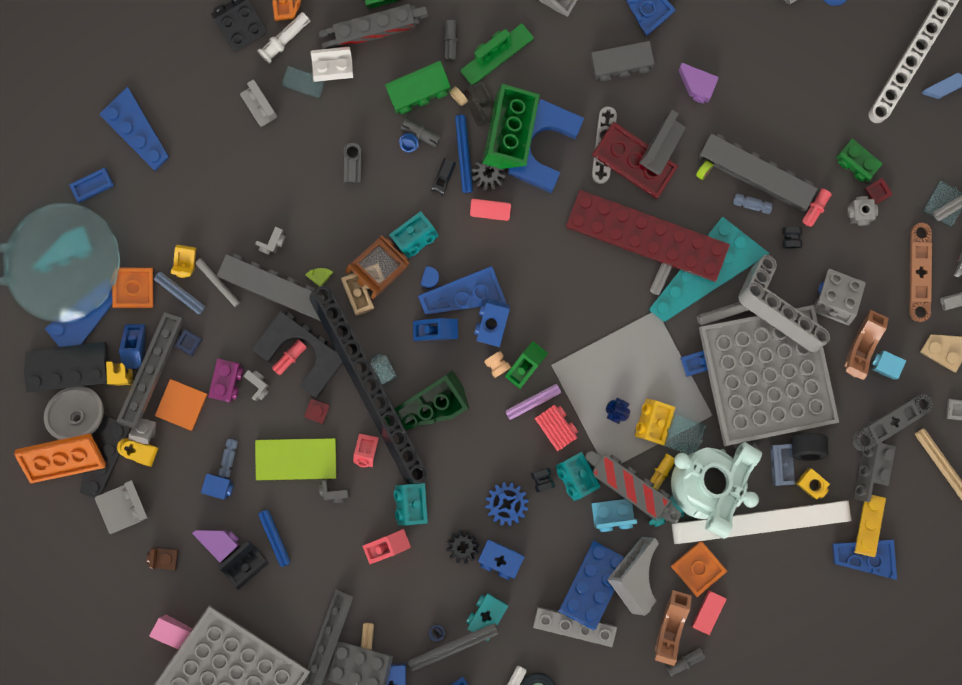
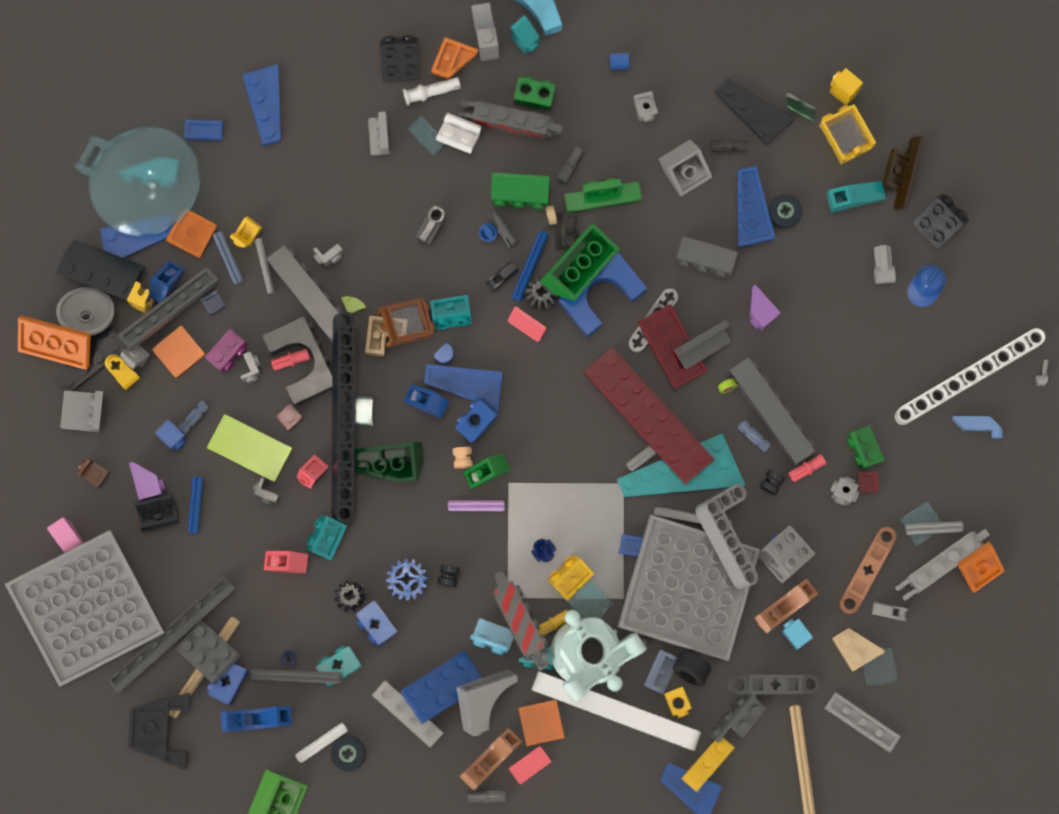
camera: 30 degrees right, 5 degrees down
(556, 427) = (484, 537): coral brick -> none
(577, 476) = (479, 588): teal bracket -> none

